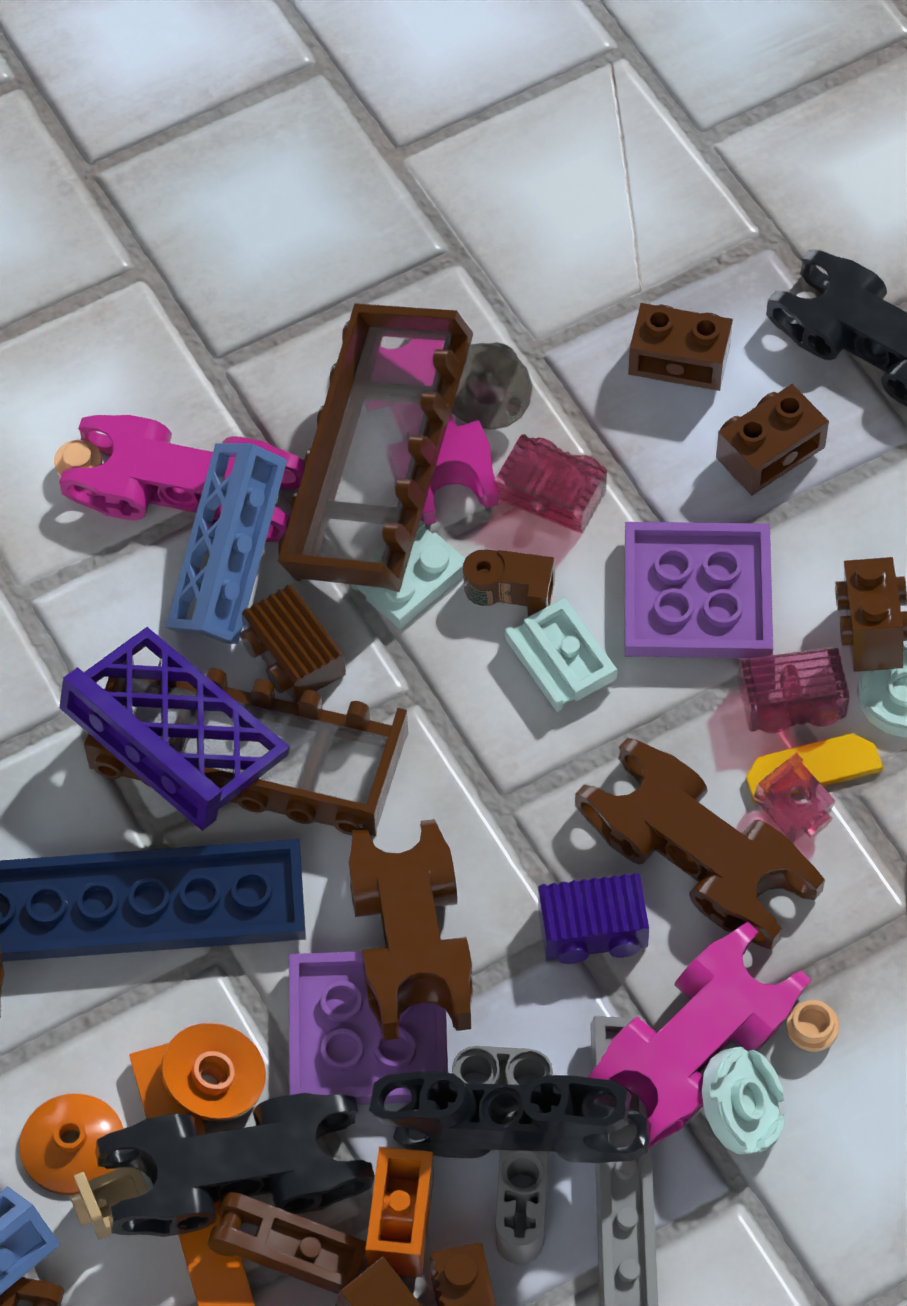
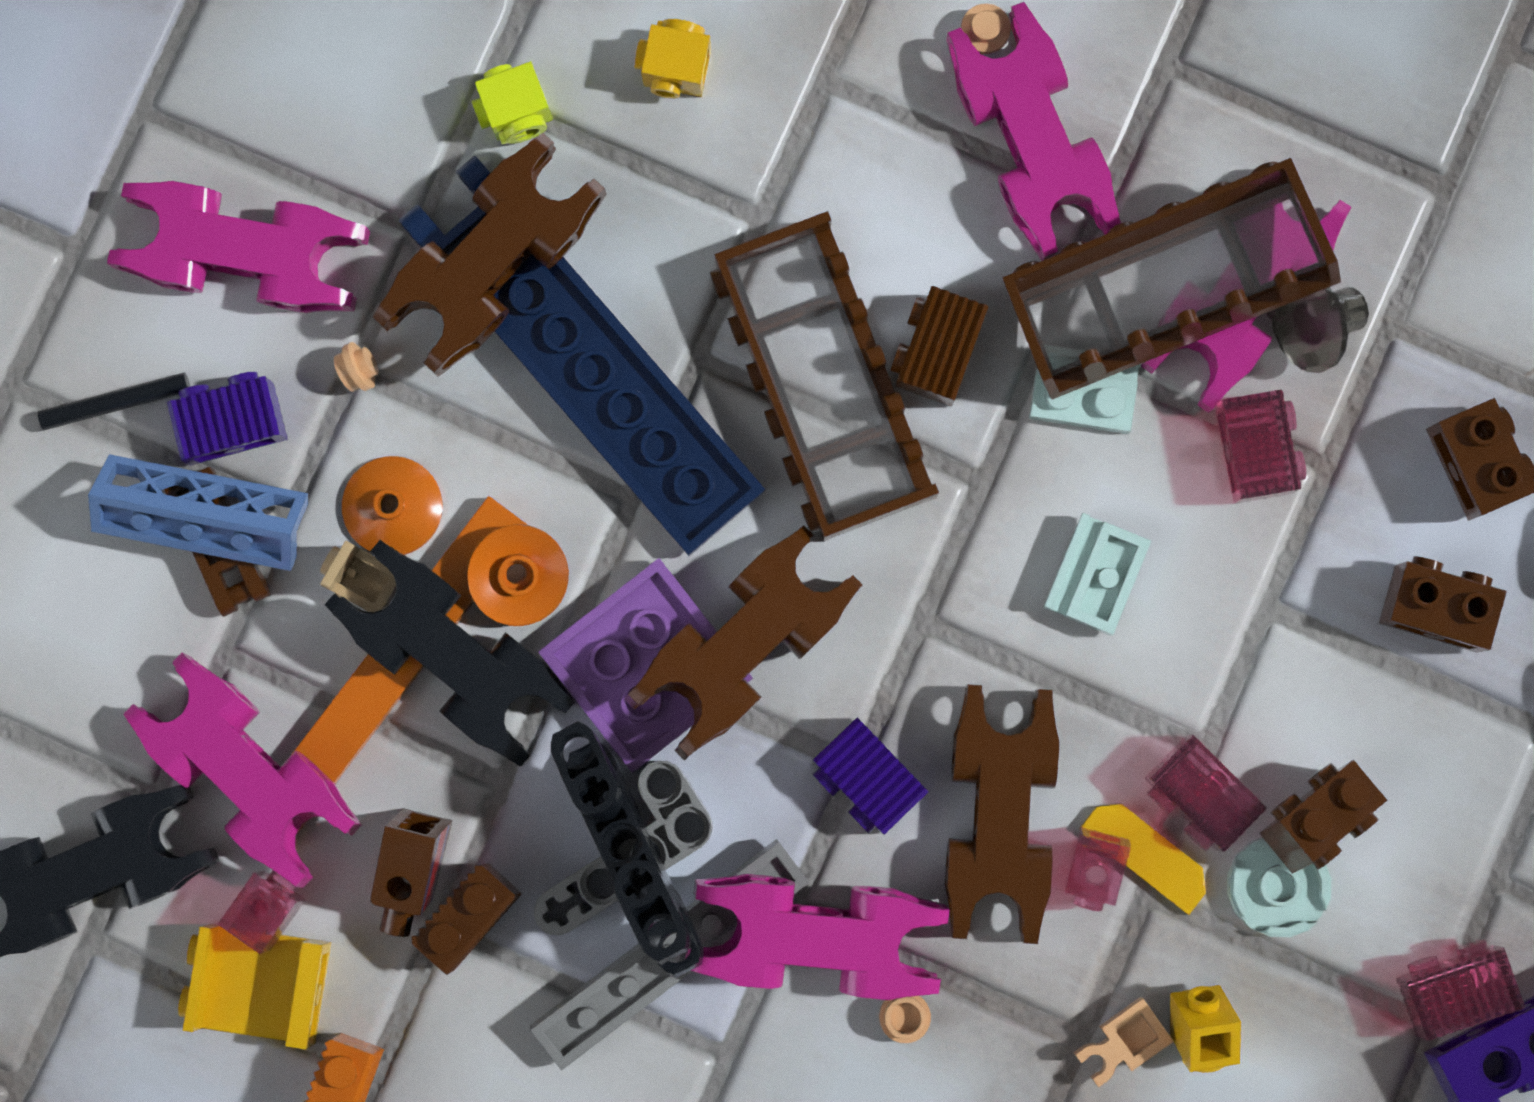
camera: 55 degrees right, 25 degrees up
(139, 743) = (737, 311): dark purple fence -> none
(233, 541) = (988, 228): medium blue fence -> none
(287, 1243) = (419, 744): reddish brown plate -> none
(400, 1209) = (502, 810): orange brick -> none
(509, 579) = (1134, 469): reddish brown leg -> none
(698, 590) = (1245, 645): medium lavender plate -> none
(743, 1100) = (788, 1013): light aqua tile -> none

